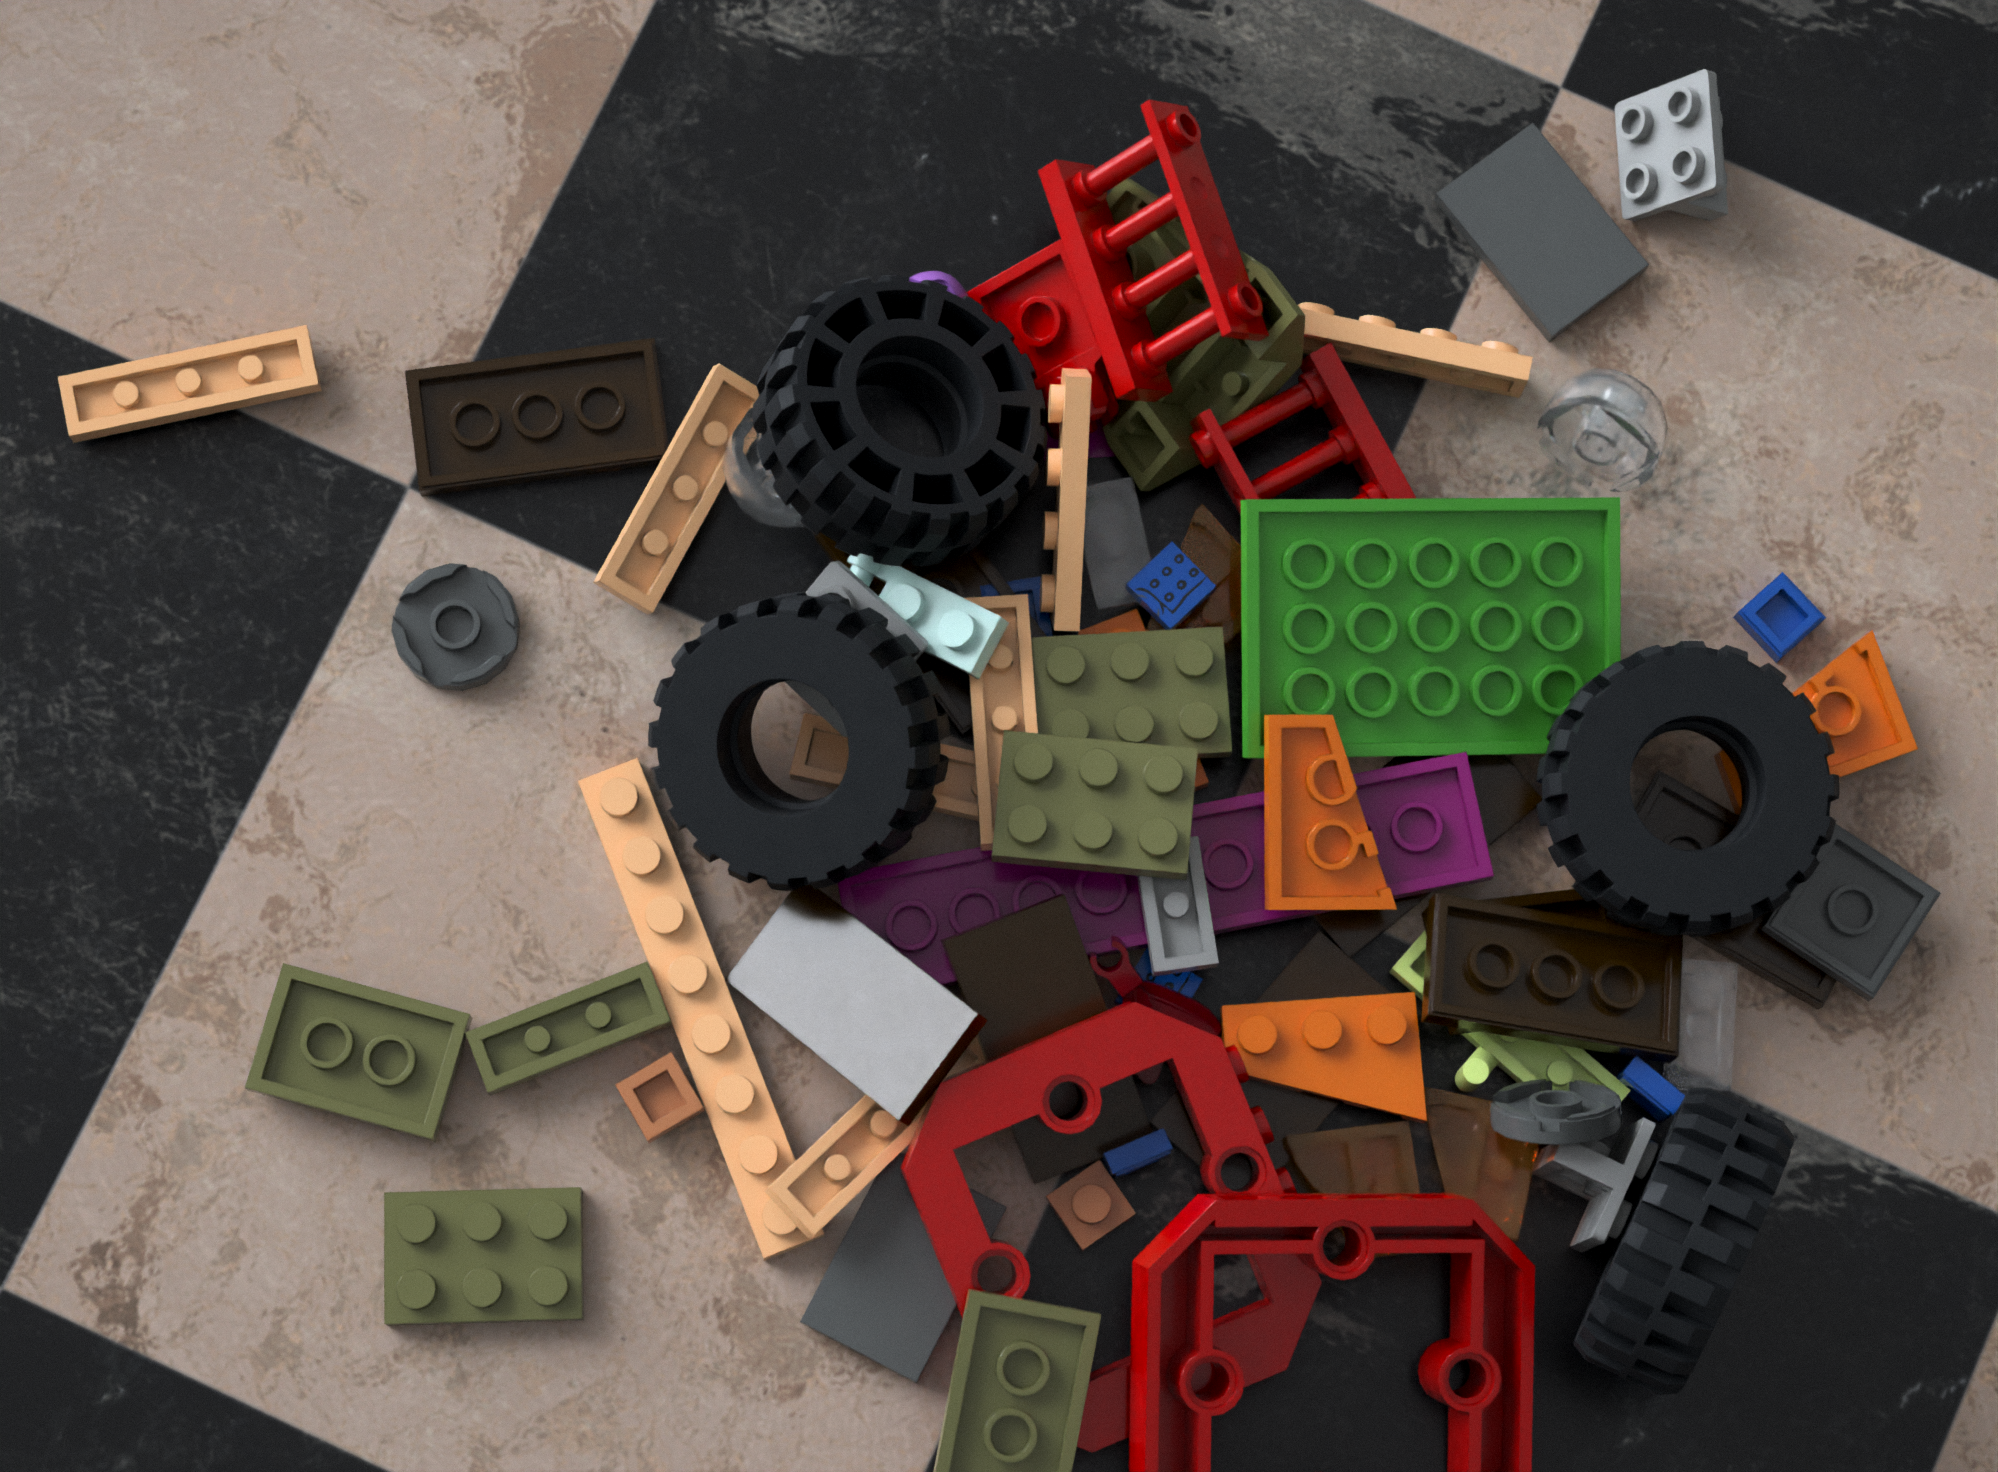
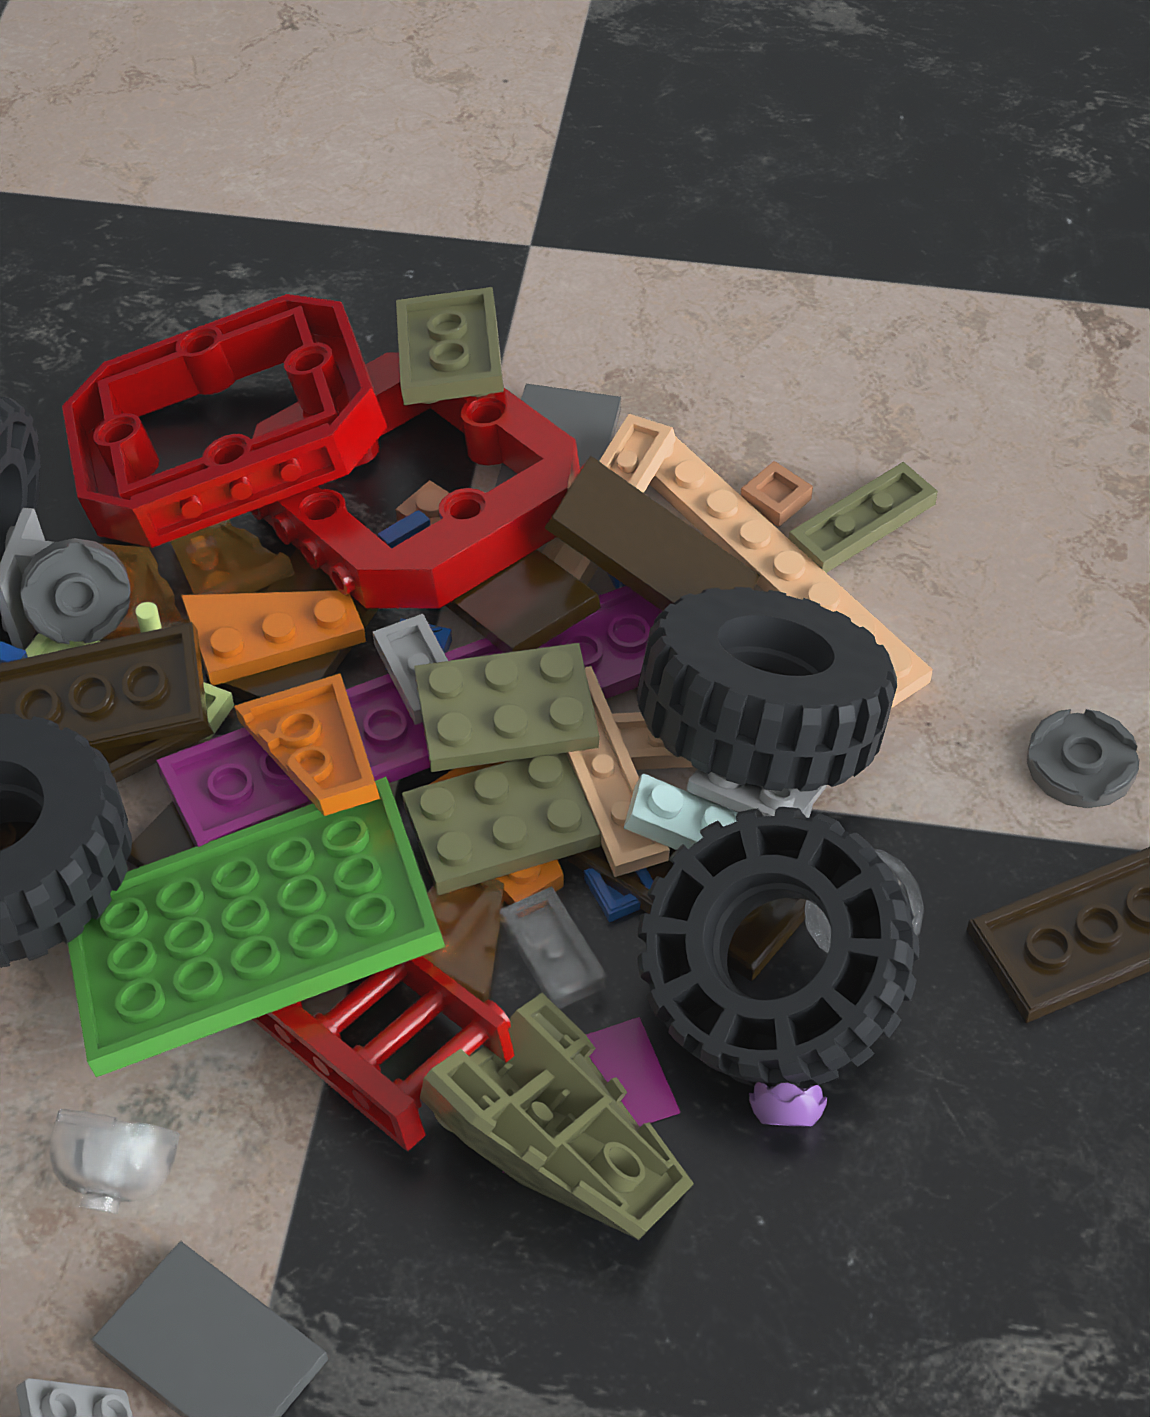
camera: 170 degrees right, 25 degrees down
(358, 1052) = (1009, 470): olive plate -> none
(483, 1256) = (860, 390): olive plate -> none
(677, 494) = (949, 891): light nougat plate -> none
(1050, 325) = (666, 1090): red plate -> none
(1068, 473) = (608, 944): light nougat plate -> none
(1099, 250) = (623, 1117): red fence -> none
(1155, 996) = (446, 627): dark red piece -> none
(1170, 587) = (491, 909): blue tile -> none
(1426, 354) = (321, 1181): light nougat plate -> none

